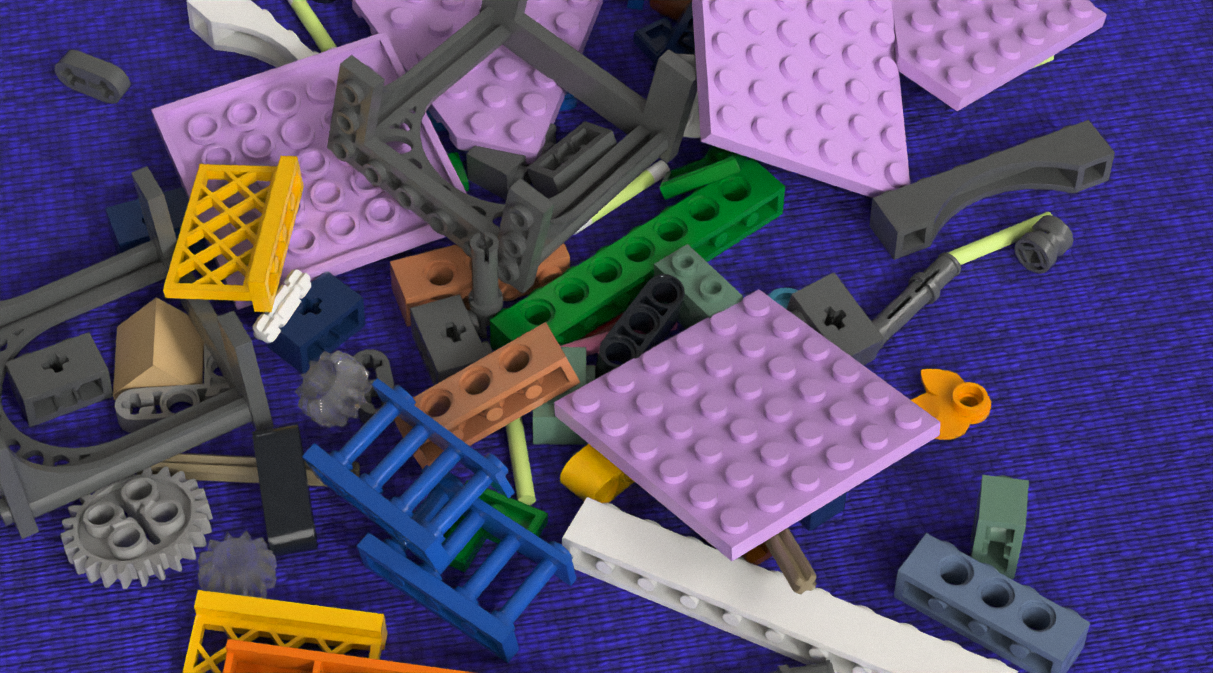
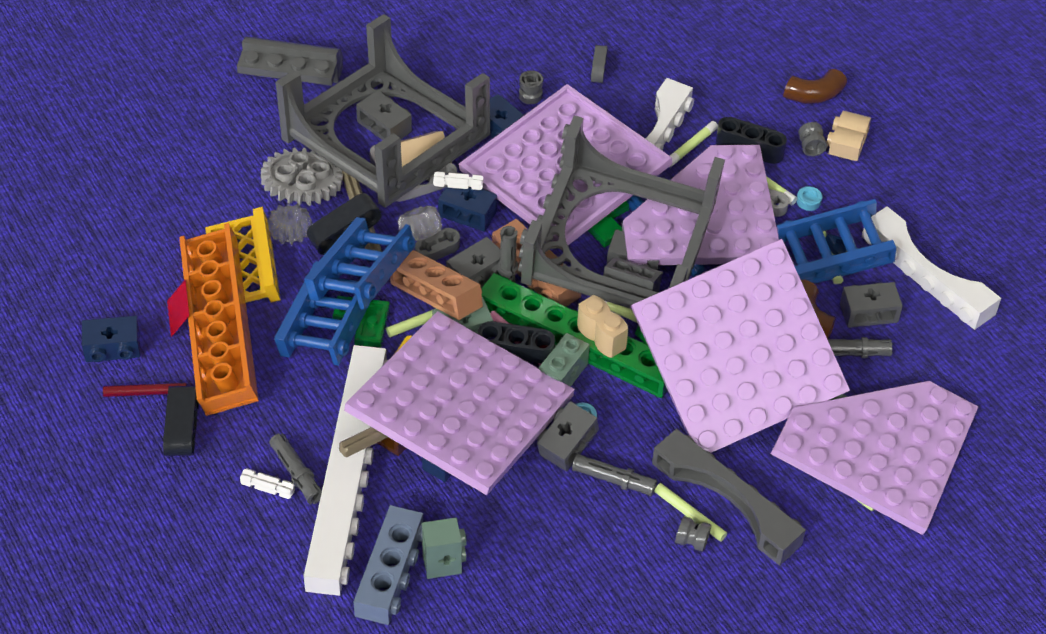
camera: 70 degrees right, 0 degrees up
(97, 172) = (530, 87): none -> dark grey wheel
(269, 244) = (491, 154): yellow fence -> none
(672, 212) = (602, 326): none -> tan brick
(946, 401) = (540, 511): light orange plate -> none

